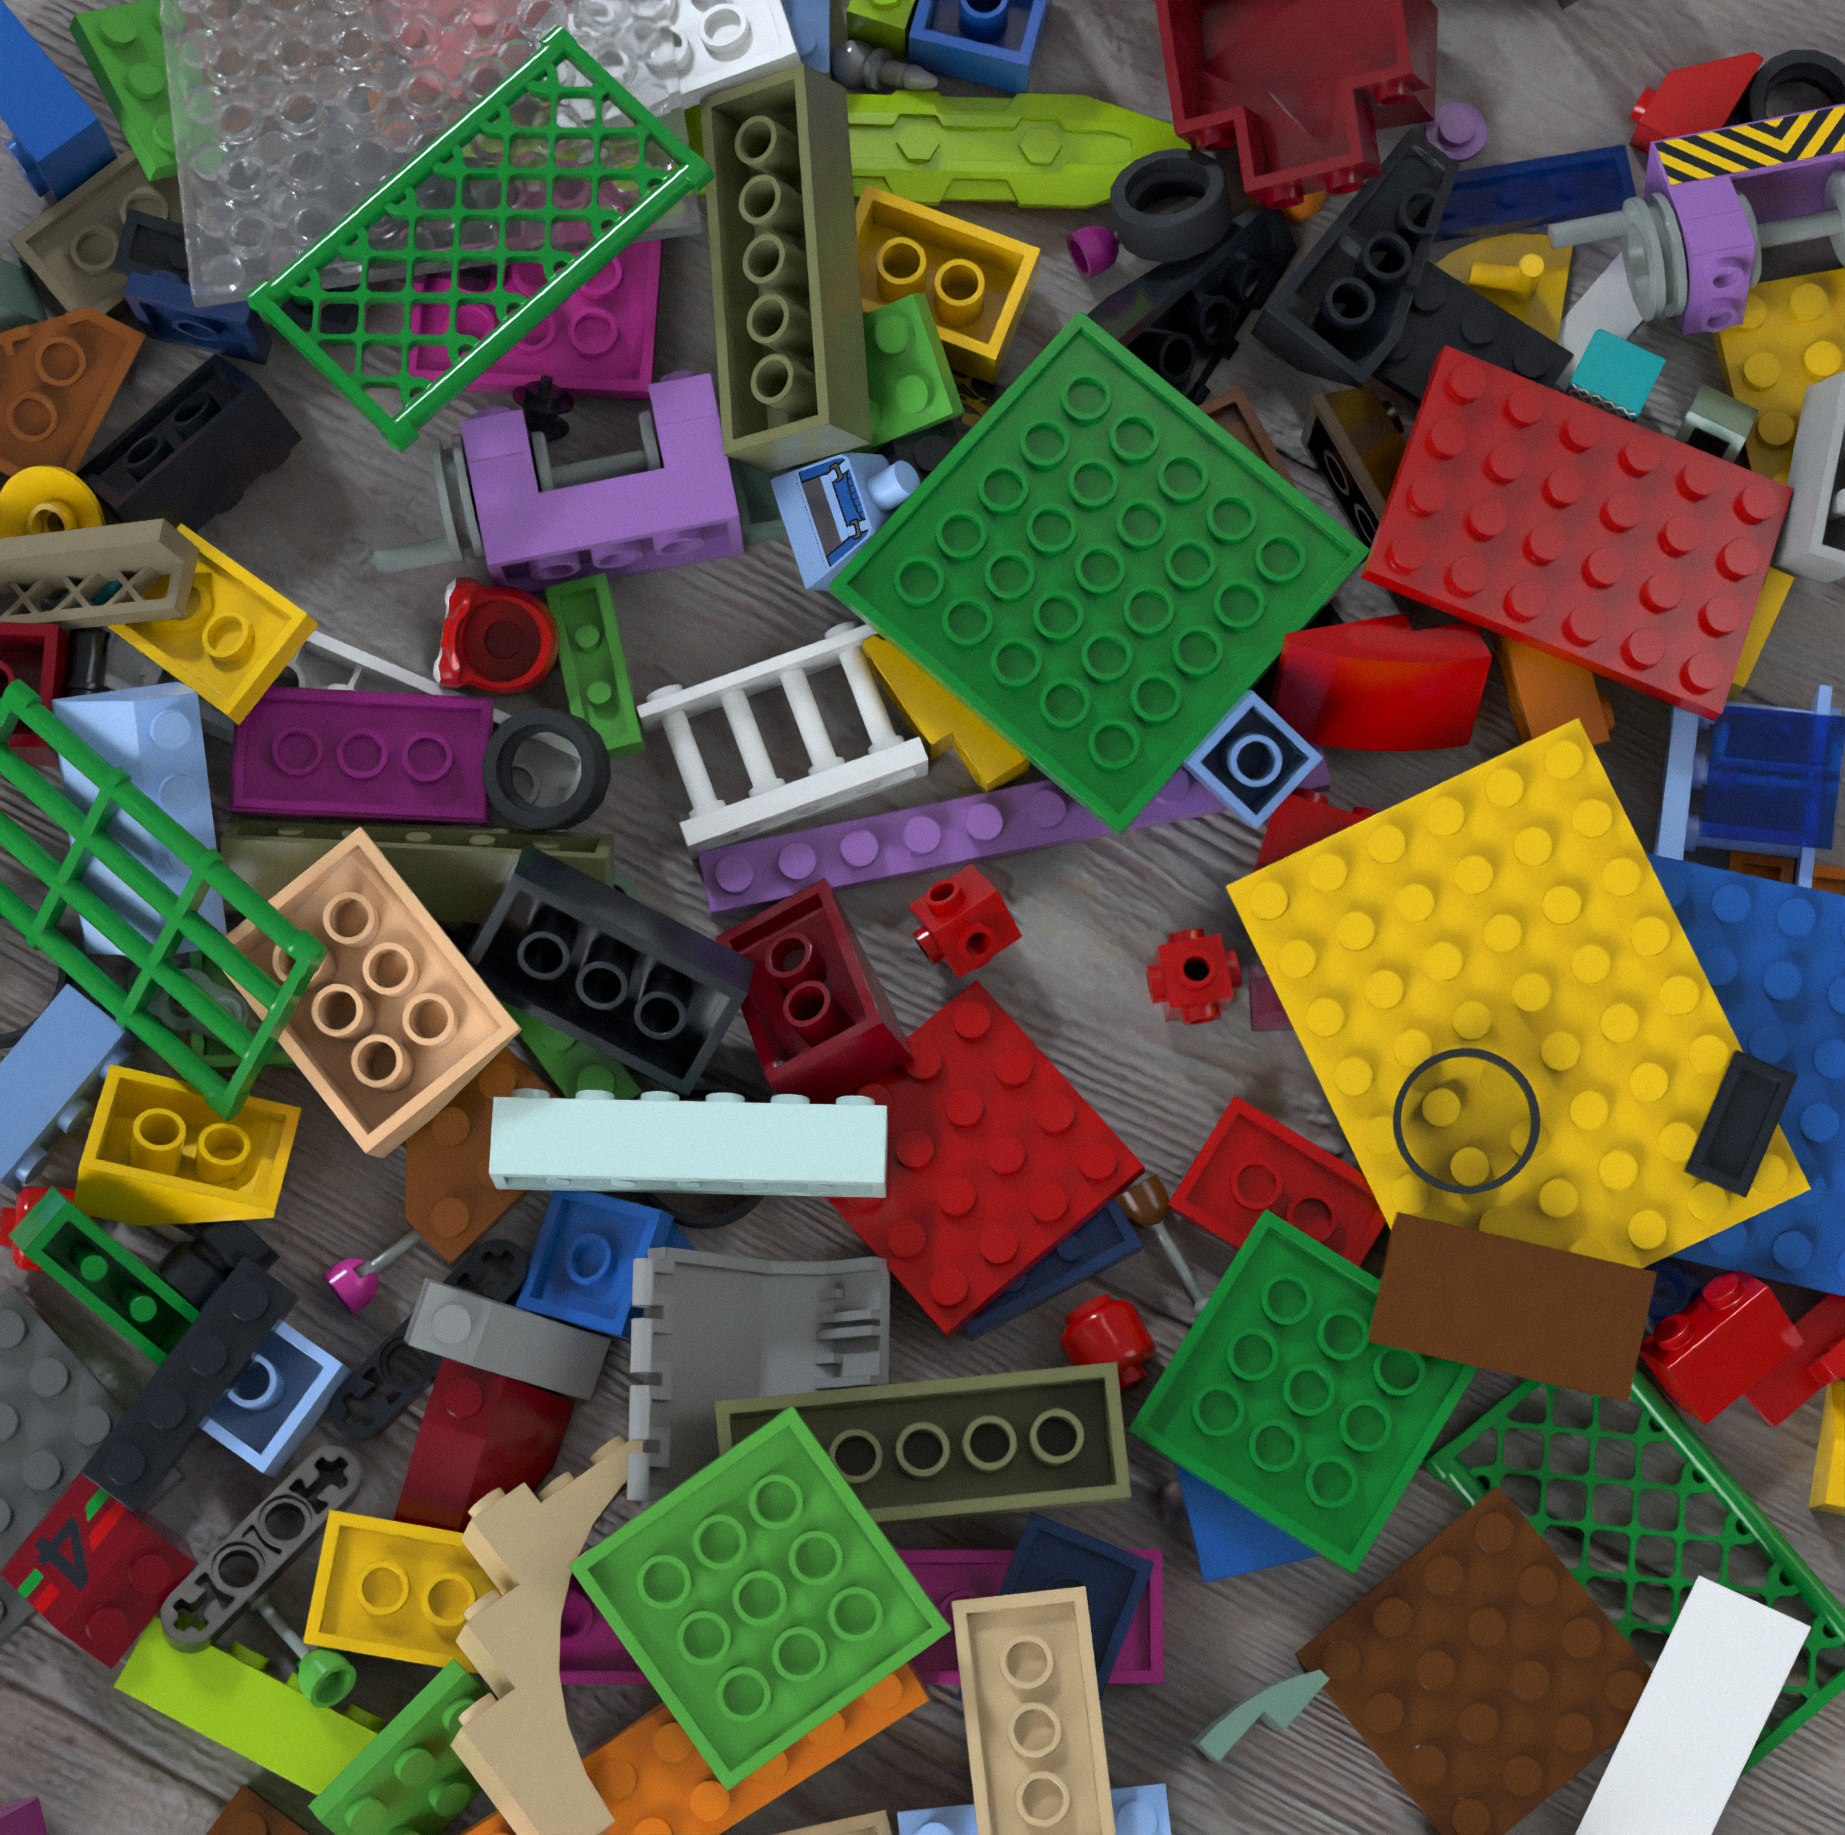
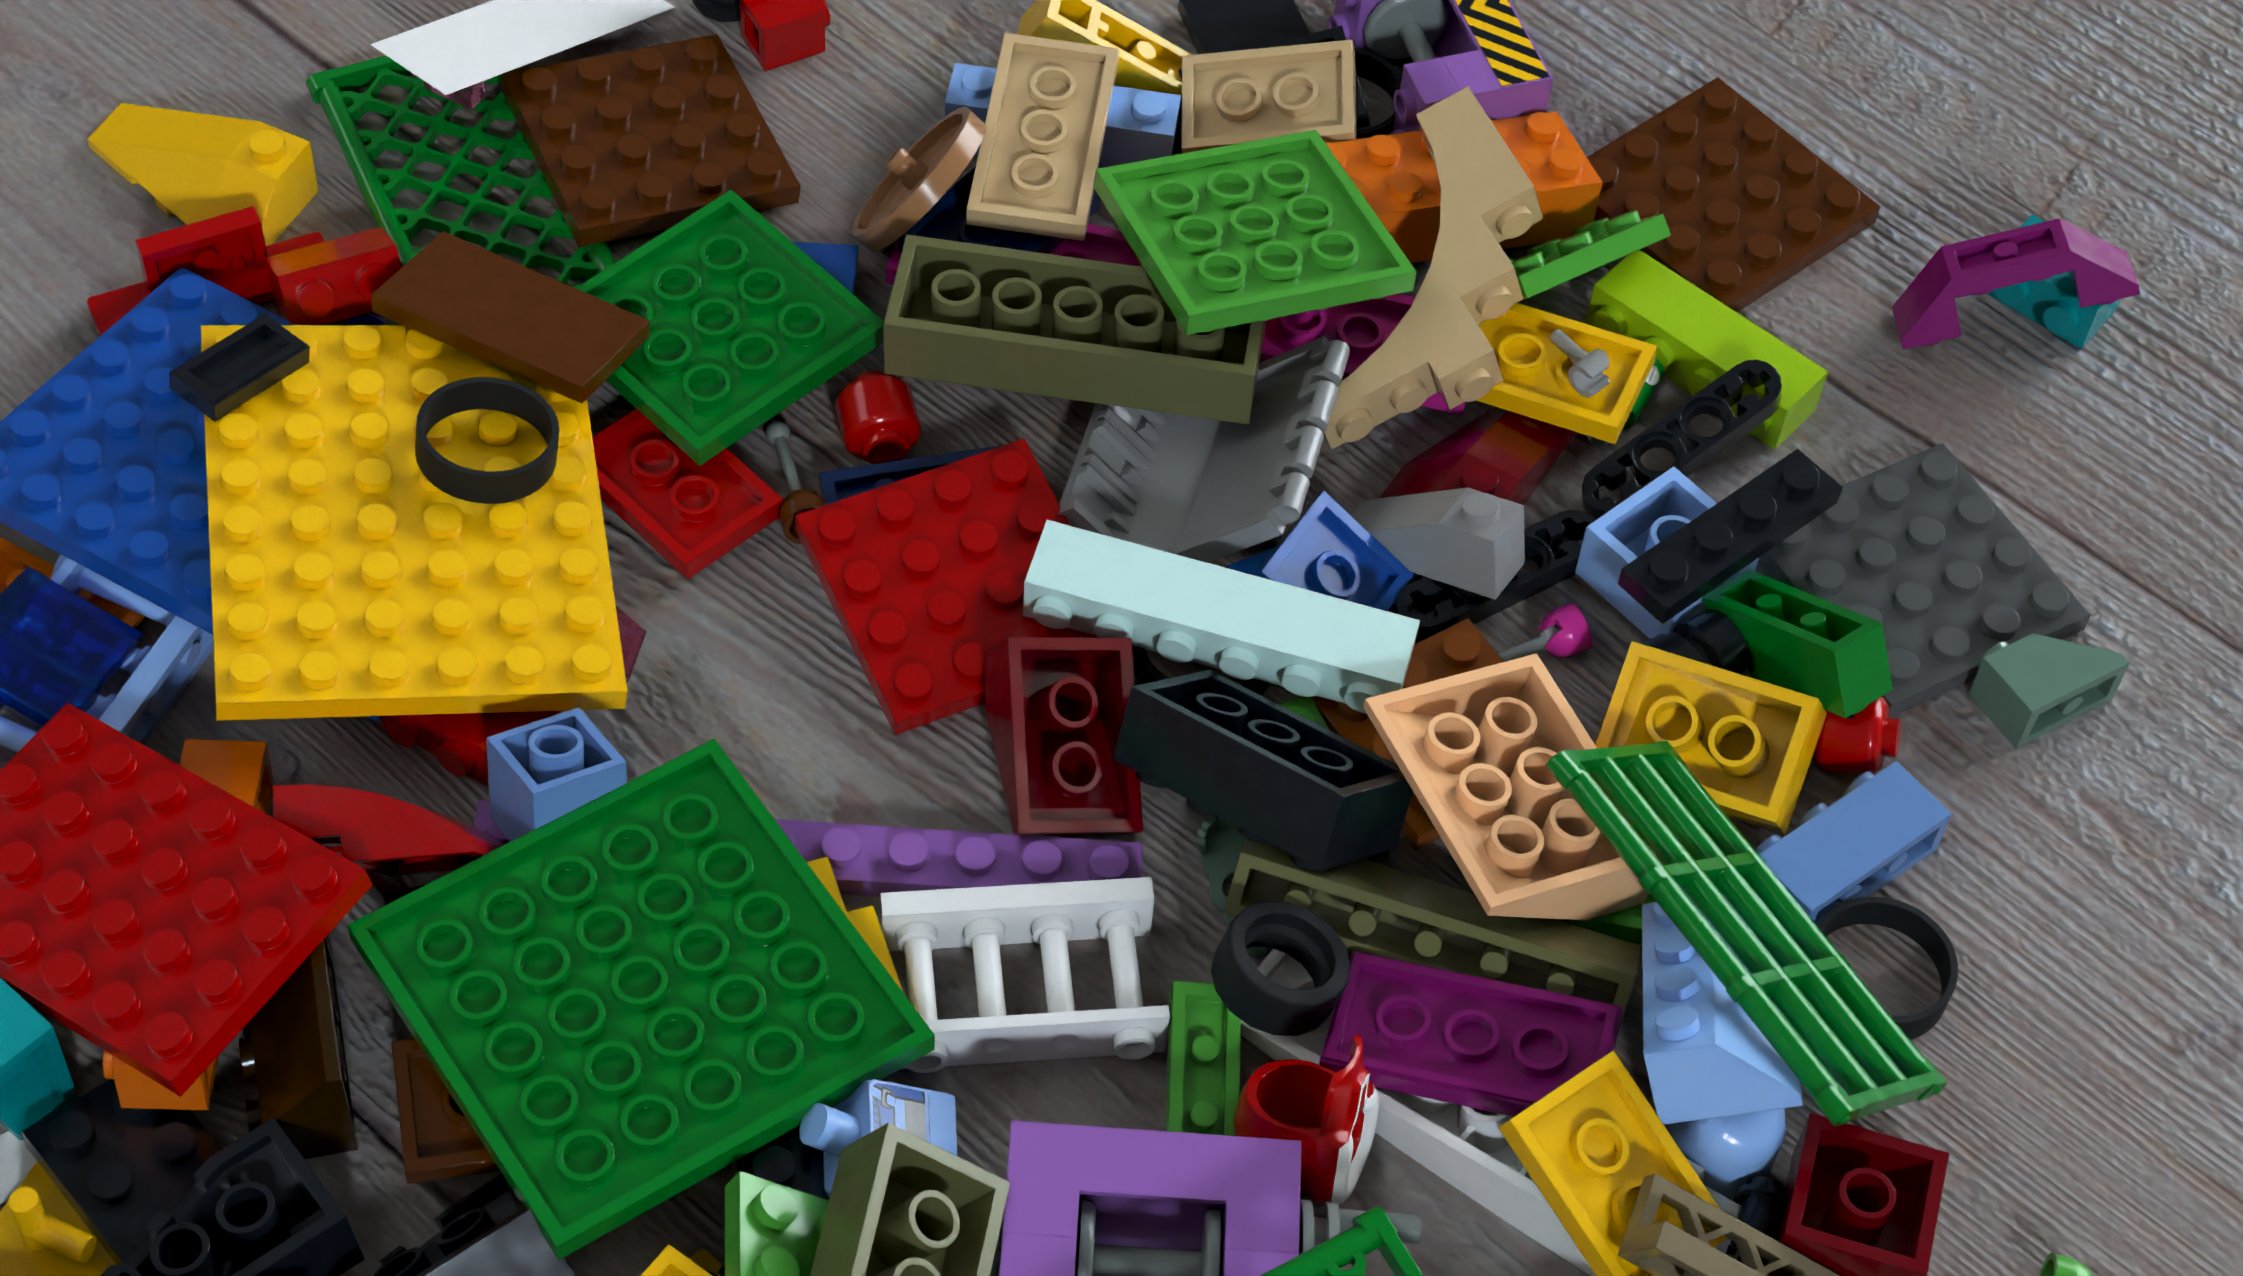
camera: 170 degrees left, 25 degrees down
(98, 1569) = (1842, 435): dark red slope -> none
(323, 1672) = (1650, 328): bright green hinge -> none
(367, 1567) = (1587, 370): none -> light grey hand
(963, 922) = (873, 760): red brick -> none
(1156, 1648) = (918, 178): none -> medium nougat piece
(1188, 999) = (686, 662): red brick -> none
(1274, 1705) = (846, 136): sand green slope -> none

